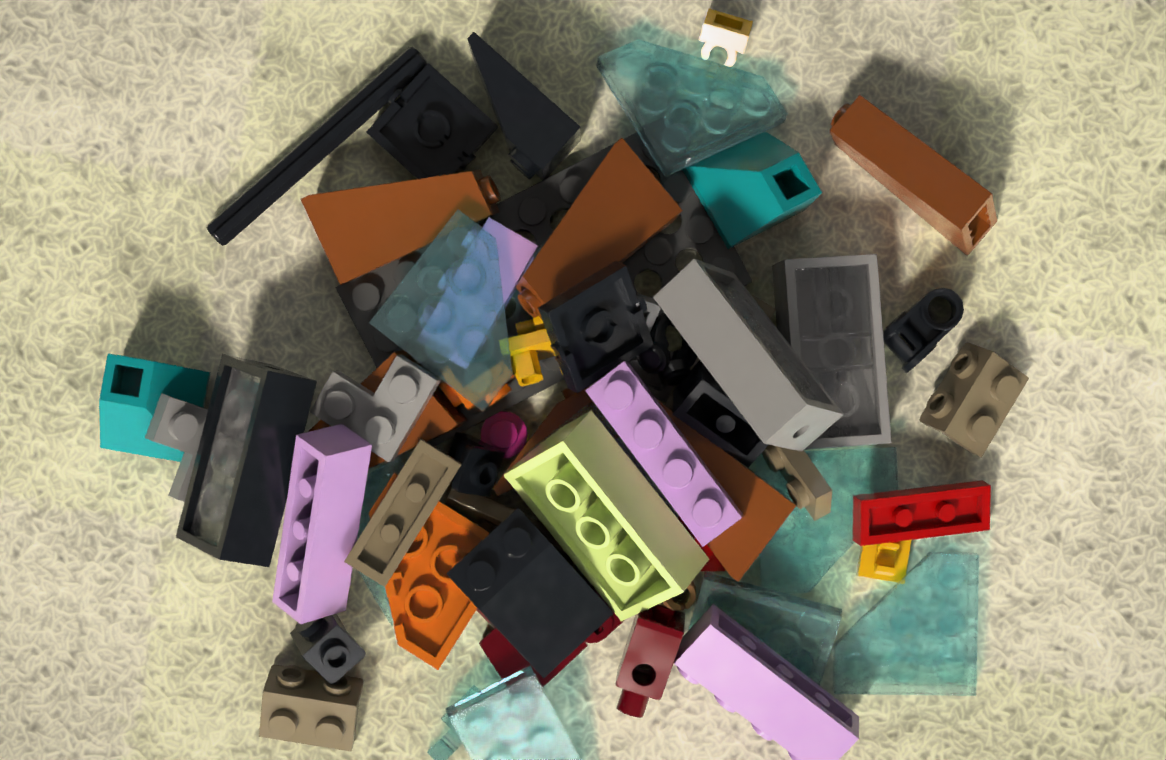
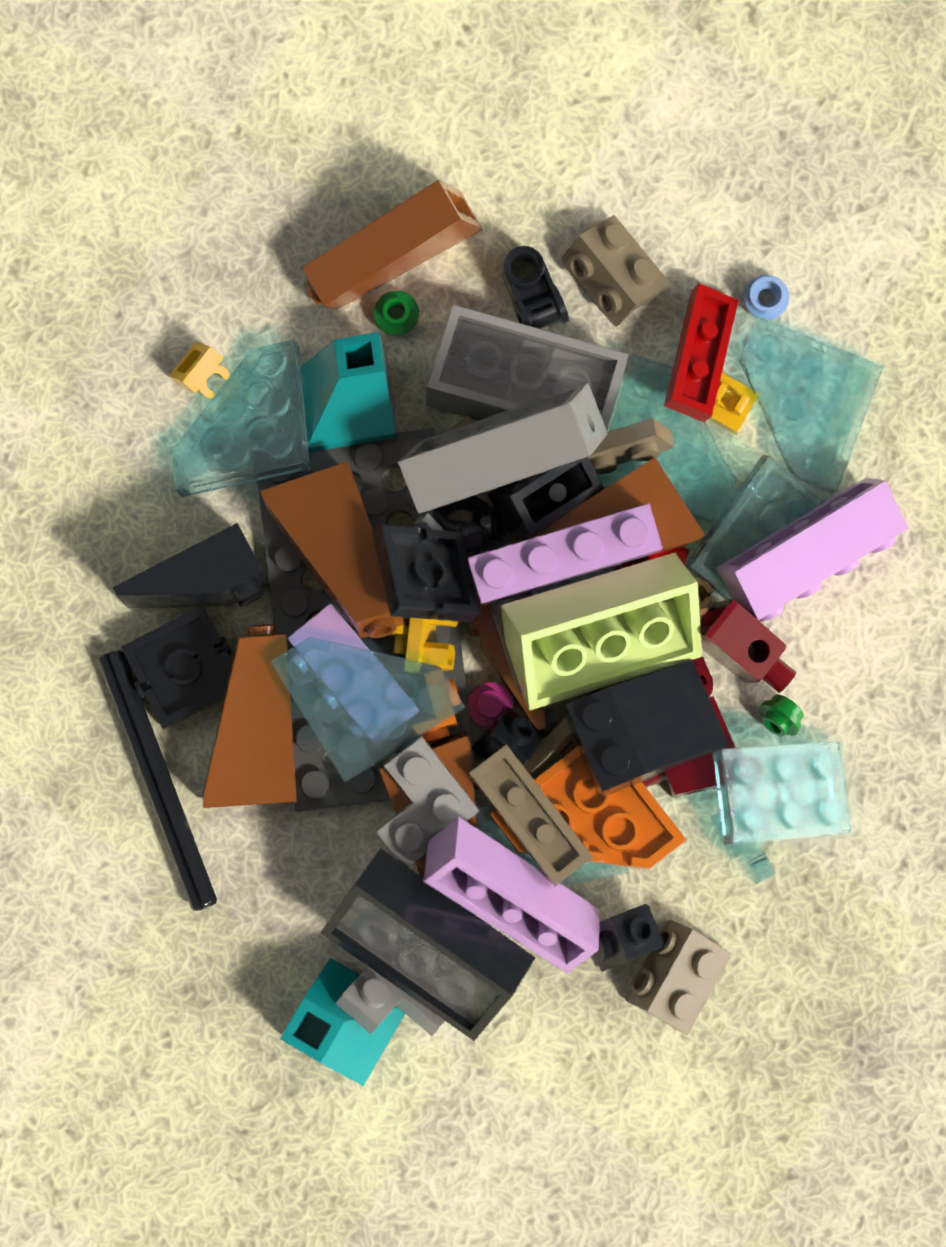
camera: 70 degrees left, 5 degrees down
(595, 717) = (781, 715): none -> green plate
(841, 213) = (400, 326): none -> green plate
(1017, 556) = (775, 287): none -> light blue plate

